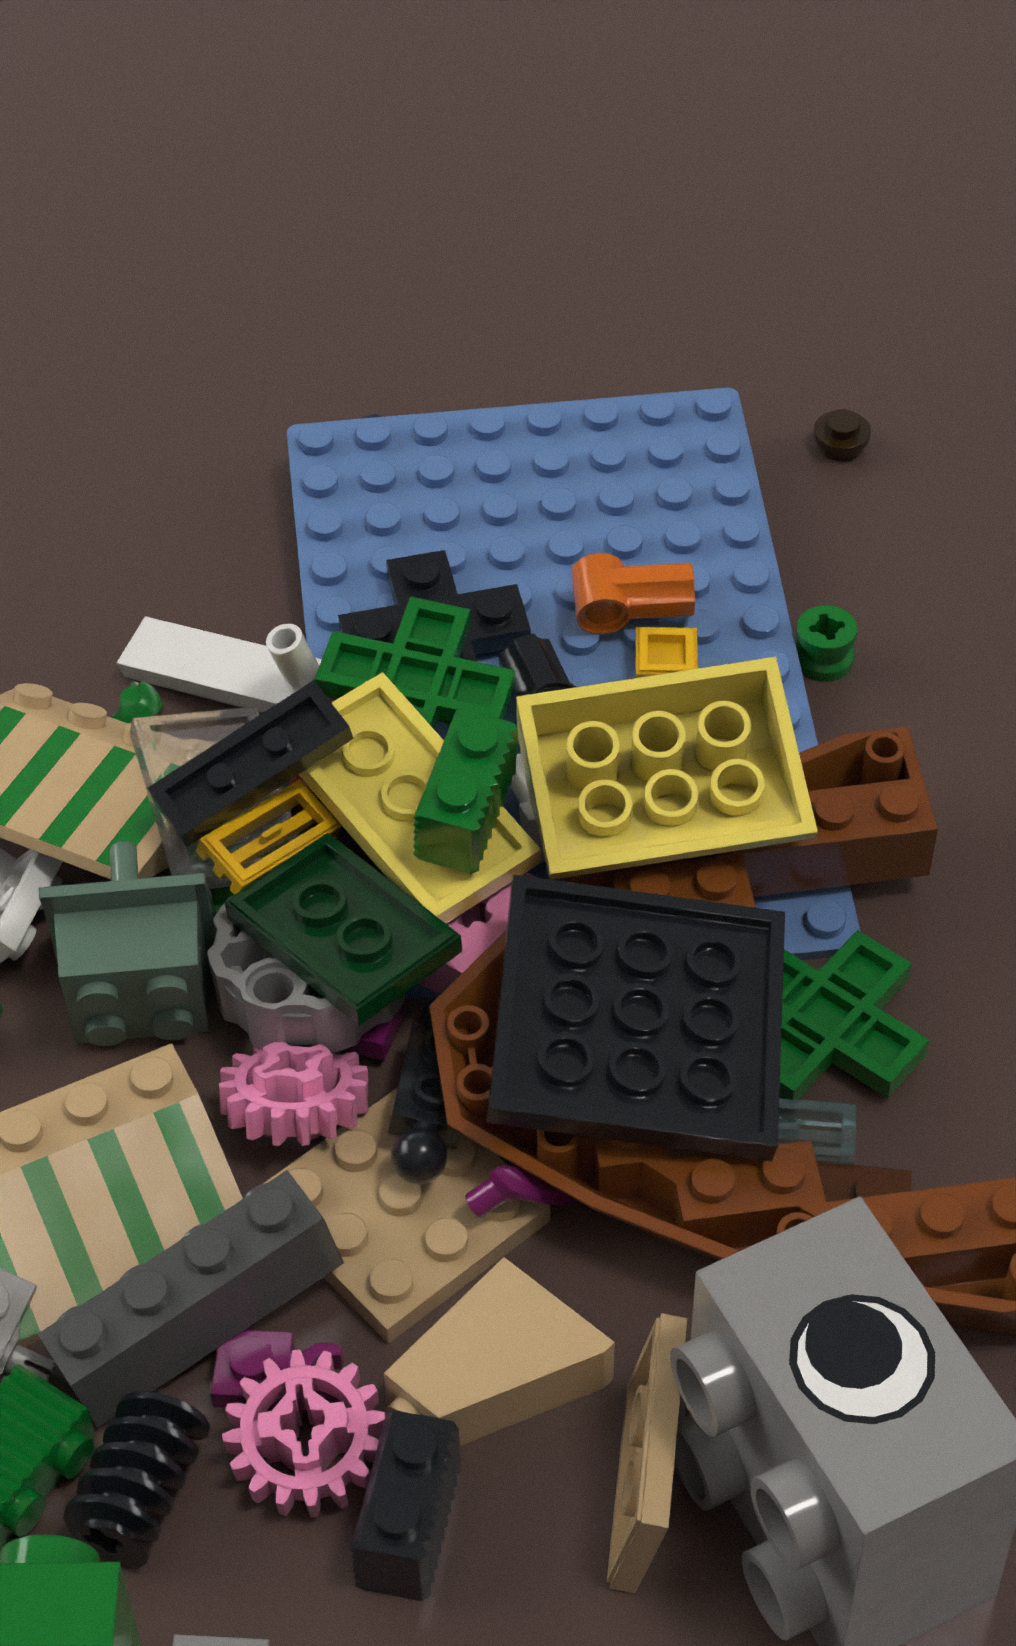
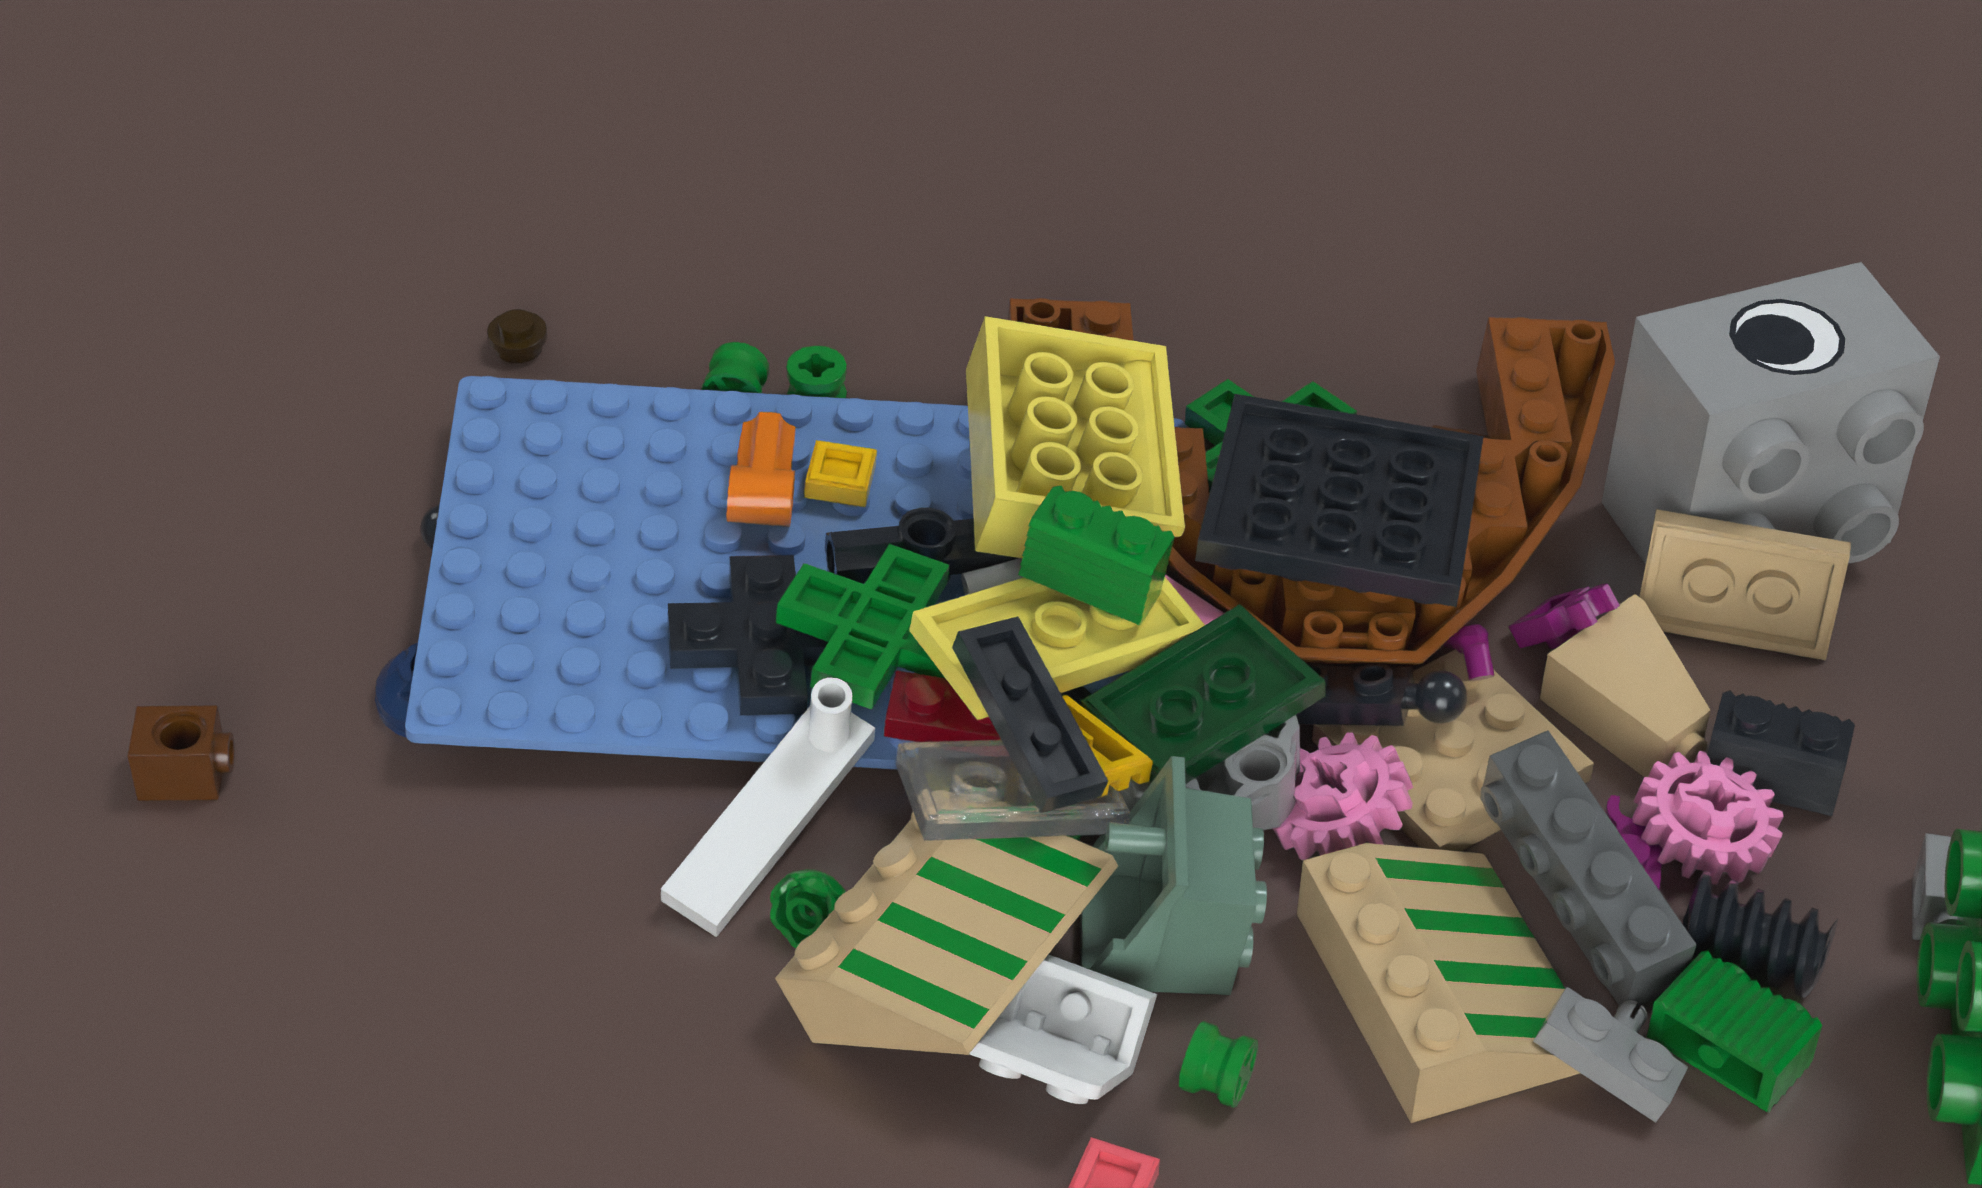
camera: 85 degrees left, 5 degrees down
(273, 318) = (179, 753): none -> reddish brown brick
(592, 1286) = (1563, 616): none -> magenta plate
(808, 580) = (737, 368): none -> green wheel

